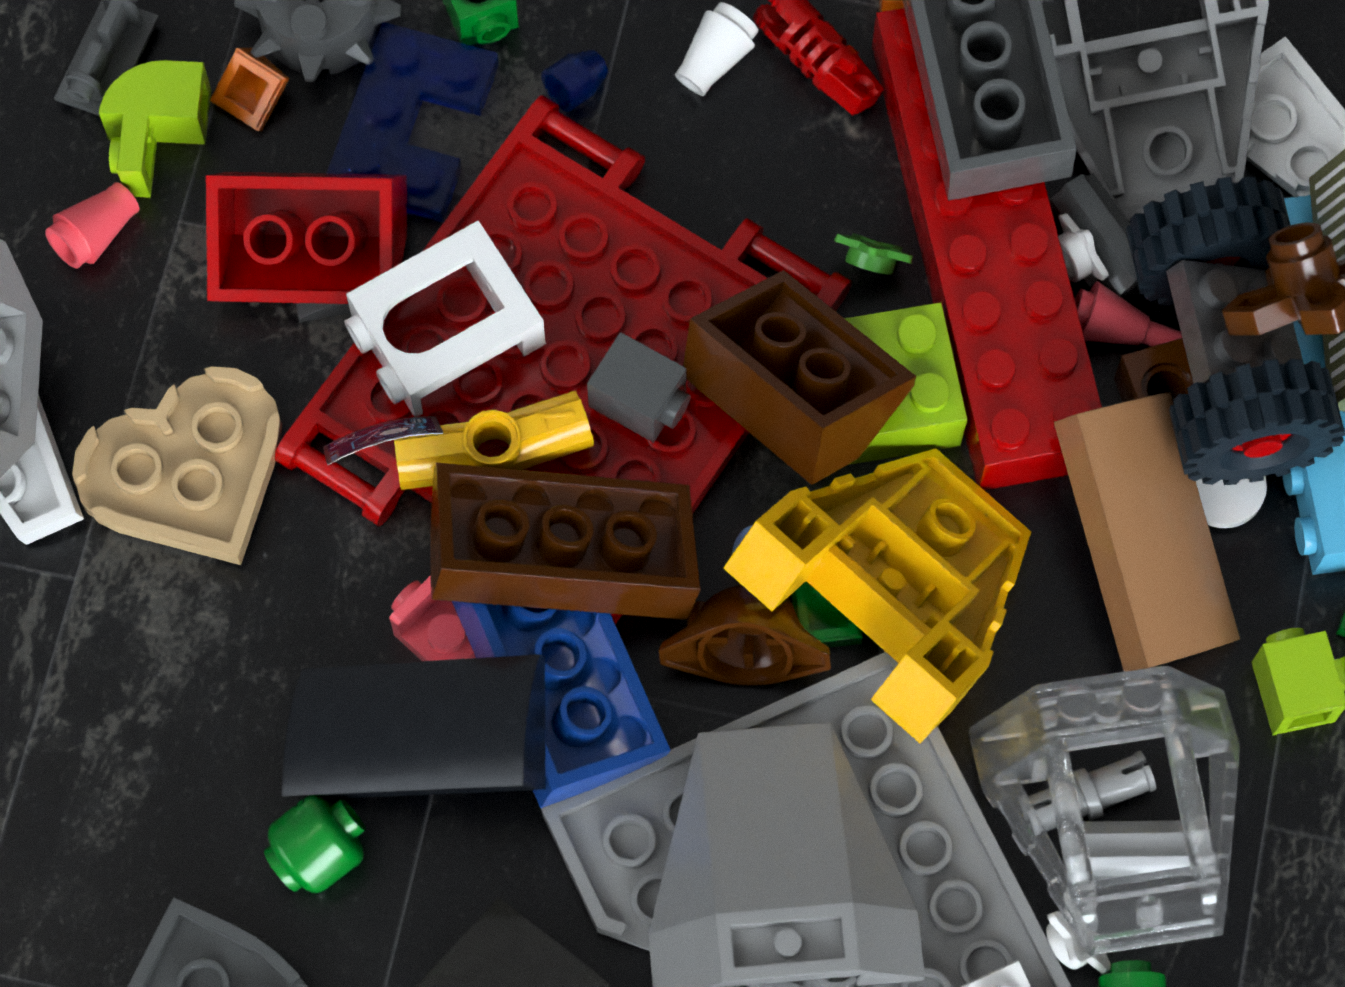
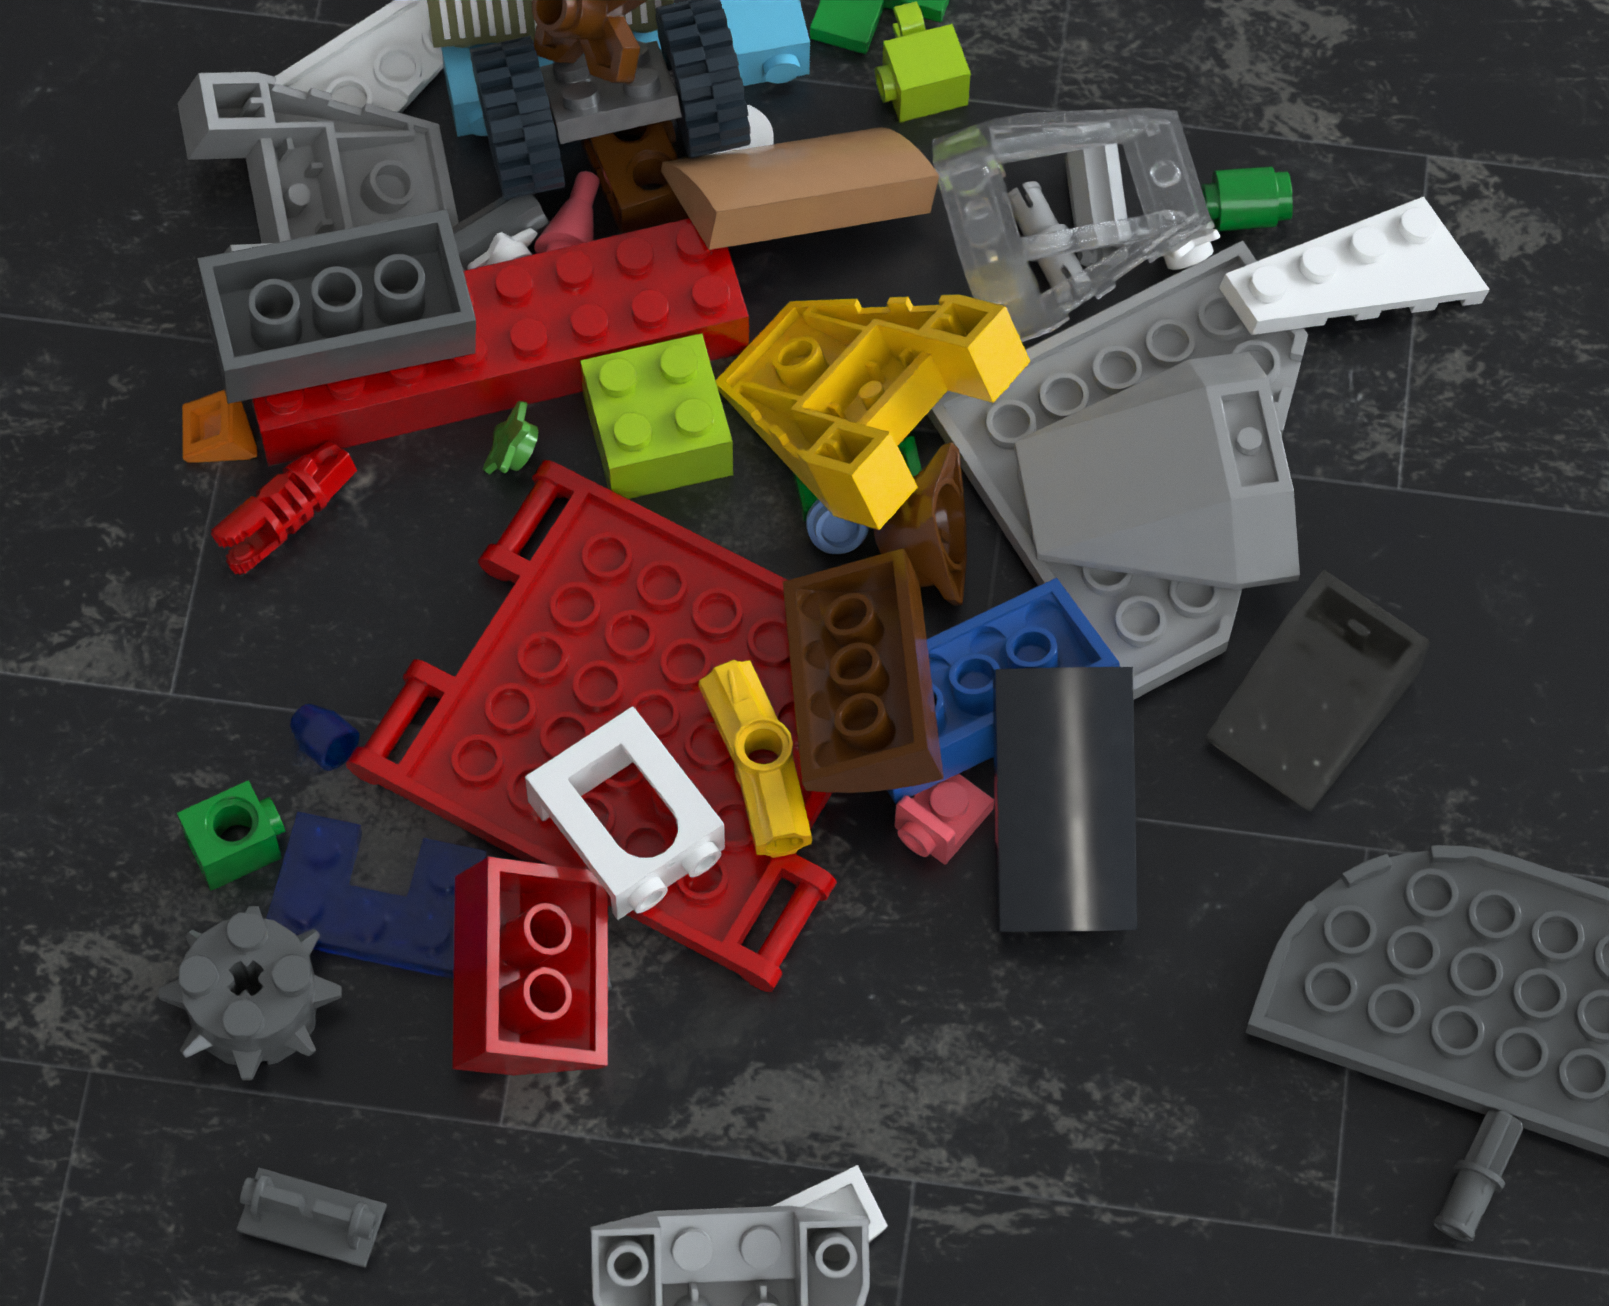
camera: 95 degrees left, 5 degrees down
(90, 226) = (522, 1203): coral cone -> none
(149, 106) = (381, 1159): lime brick -> none
(188, 468) = (792, 1071): tan plate -> none
(250, 88) = (344, 1061): orange slope -> none
(315, 843) = (1178, 899): green head -> none
(380, 433) = (766, 857): sticker -> none
(639, 388) = (688, 627): dark grey brick -> none
(716, 47) = (284, 599): white cone -> none
(795, 374) = (676, 473): reddish brown slope -> none

